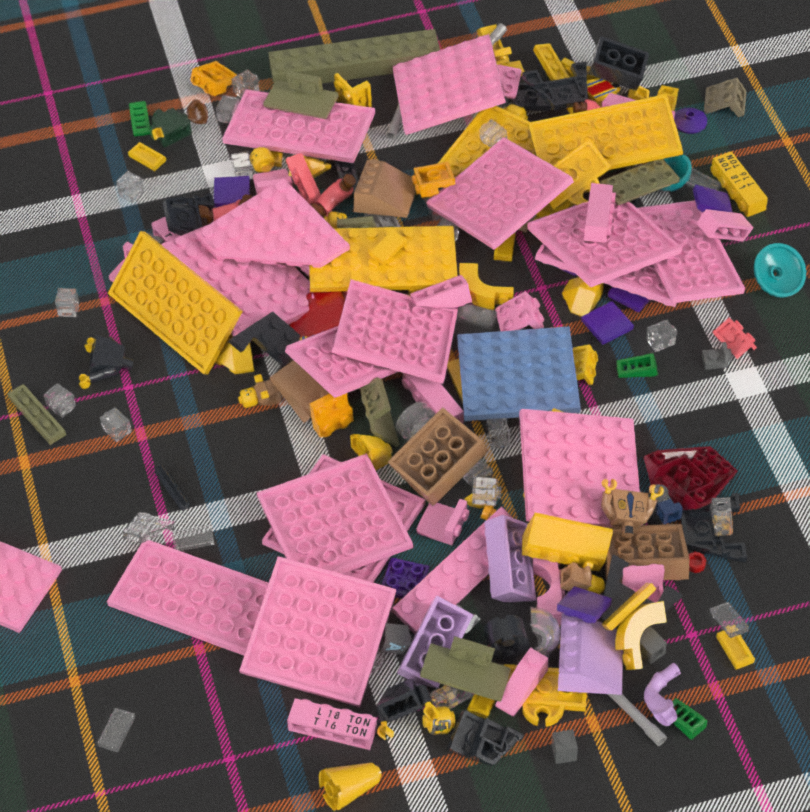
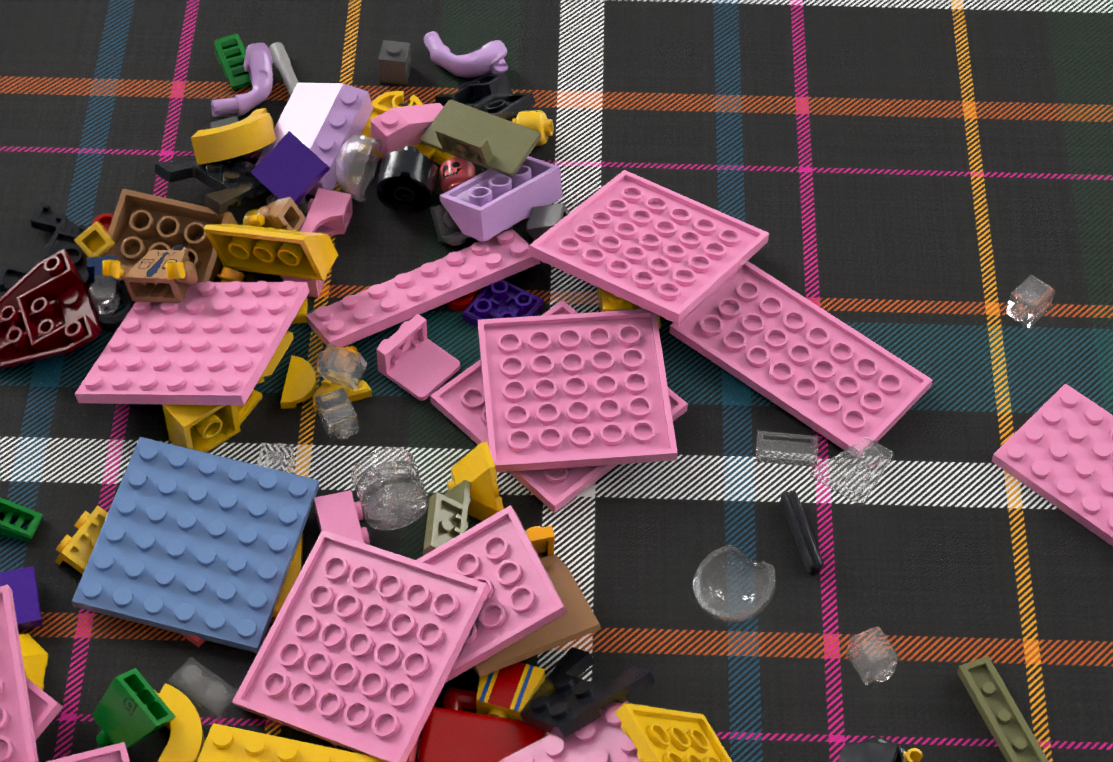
camera: 165 degrees left, 0 degrees up
(48, 681) = (1030, 301): none -> clear brick
(59, 400) = (960, 728): clear brick -> none
(116, 730) = (945, 232): clear tile -> none
(201, 430) = (733, 585): none -> clear cylinder
(263, 393) = (617, 640): piece -> none
(332, 723) = (666, 158): bright pink brick -> none
(347, 783) = (667, 86): yellow cone -> none
(401, 701) = (569, 142): black torso -> none
(438, 456) = (387, 409): medium nougat slope -> none
(446, 294) = (252, 709): bright pink slope -> none
(495, 774) = (474, 64): none -> lavender piece
(505, 275) = (130, 711): none -> green torso
(508, 569) = (357, 269): lavender slope -> none
(512, 493) = (299, 383): none -> yellow tile
(519, 313) = (139, 646): bright pink bracket -> none
(629, 606) = (231, 153): yellow tile -> none
(637, 576) = (190, 186): bright pink bracket -> none
(690, 531) = (95, 240): none -> yellow slope
(721, 516) = (39, 243): clear leg -> none
(729, 619) = (112, 143): clear tile -> none
(736, 650) = (124, 120): yellow tile -> none

